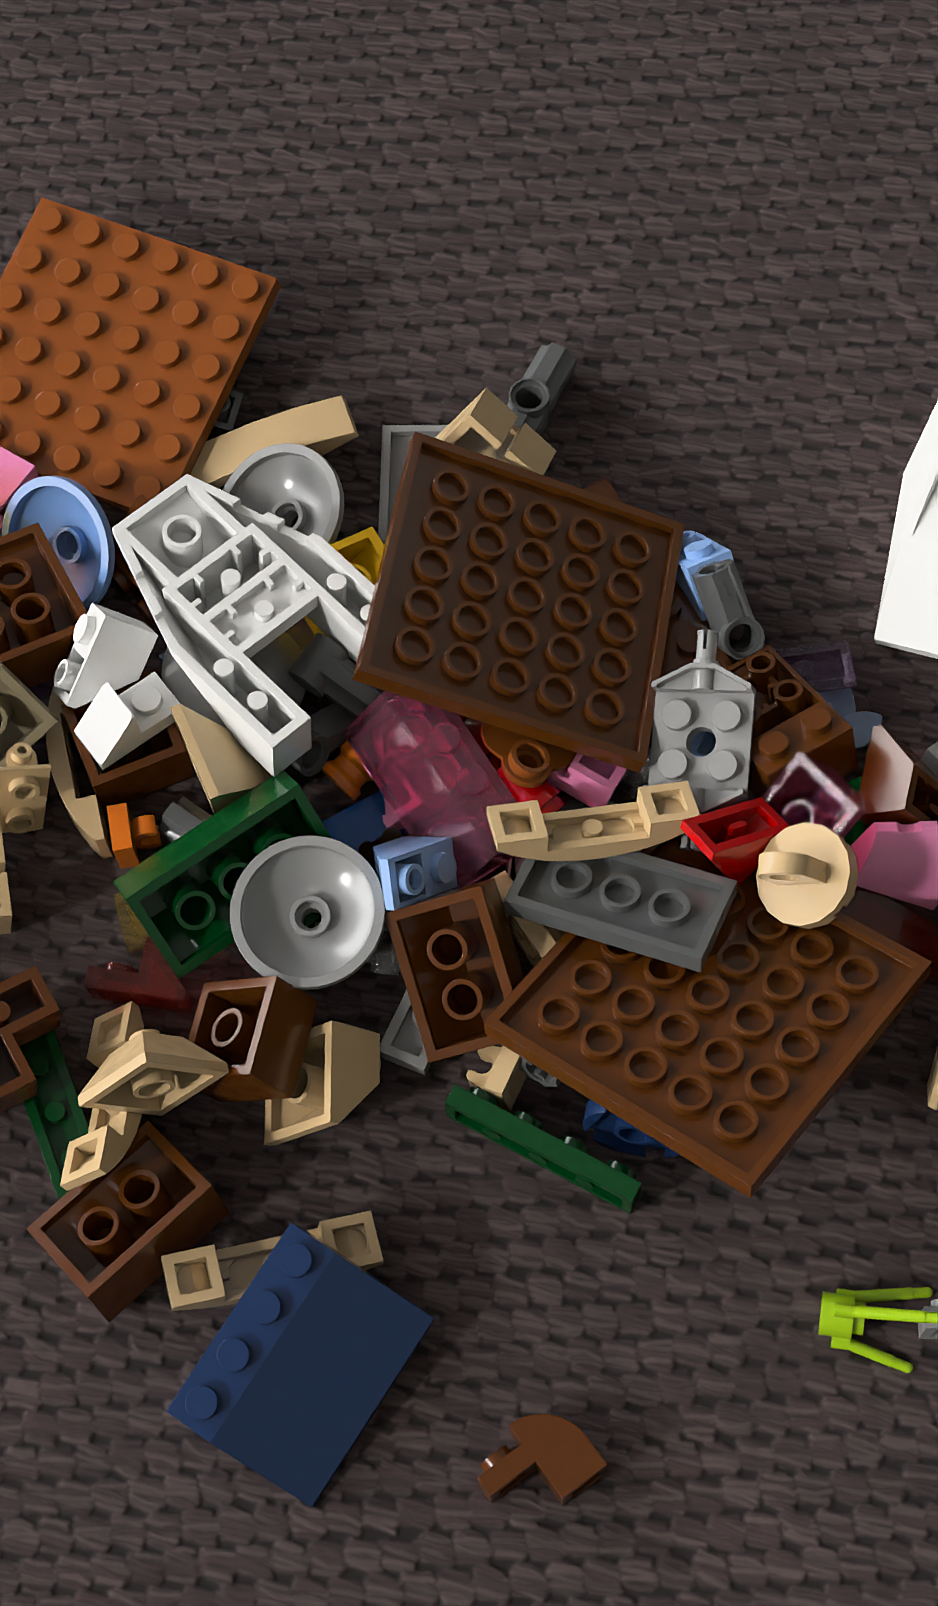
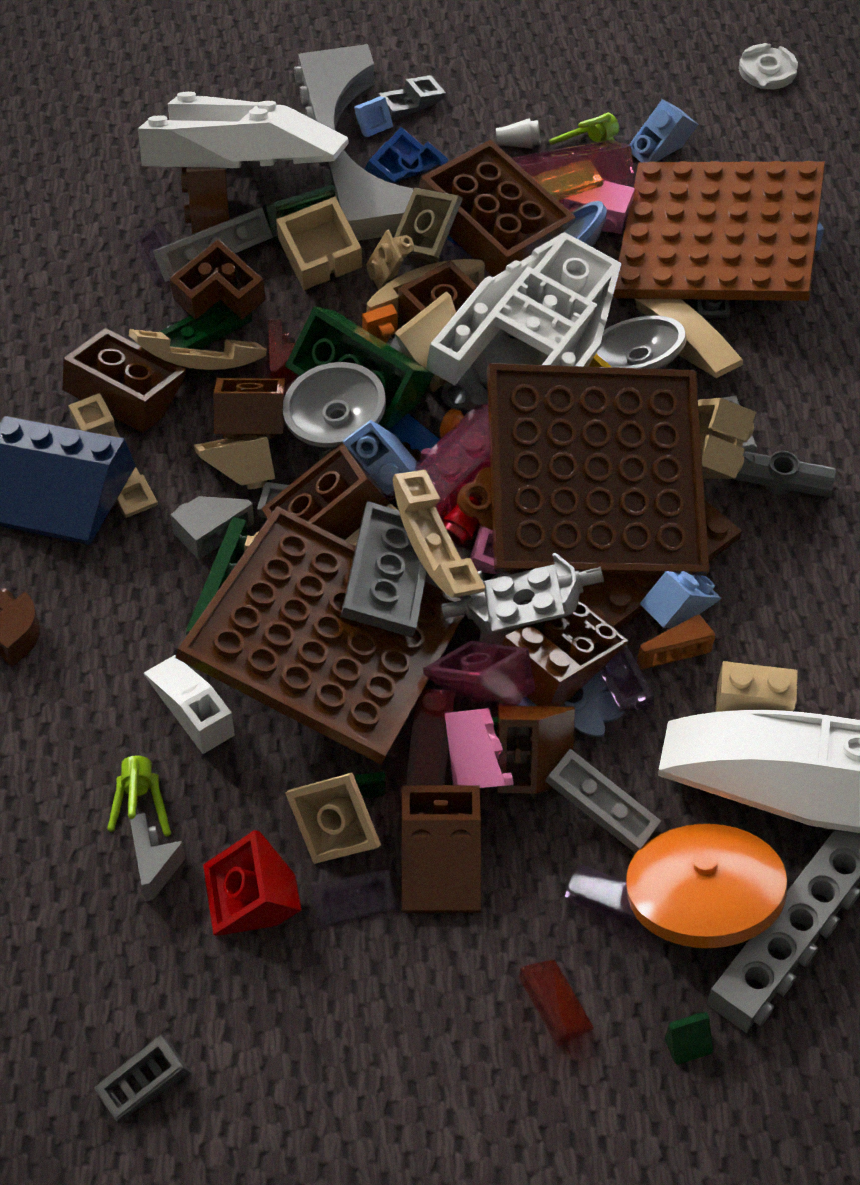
camera: 70 degrees right, 10 degrees down
(105, 650) = (478, 264): white slope -> none
(125, 721) = (443, 279): white slope -> none
(151, 1074) = (210, 352): tan slope -> none
(430, 1144) = (205, 521): none -> light grey slope
(727, 607) = (647, 606): dark grey piece -> none
(734, 1222) = (192, 703): none -> white slope
(735, 835) = (448, 622): red slope -> none
(764, 588) = (681, 642): none -> dark orange slope
(806, 875) = (427, 662): tan tile -> none
(861, 526) = (755, 688): none -> tan brick
(907, 1025) = (371, 784): none -> dark green slope

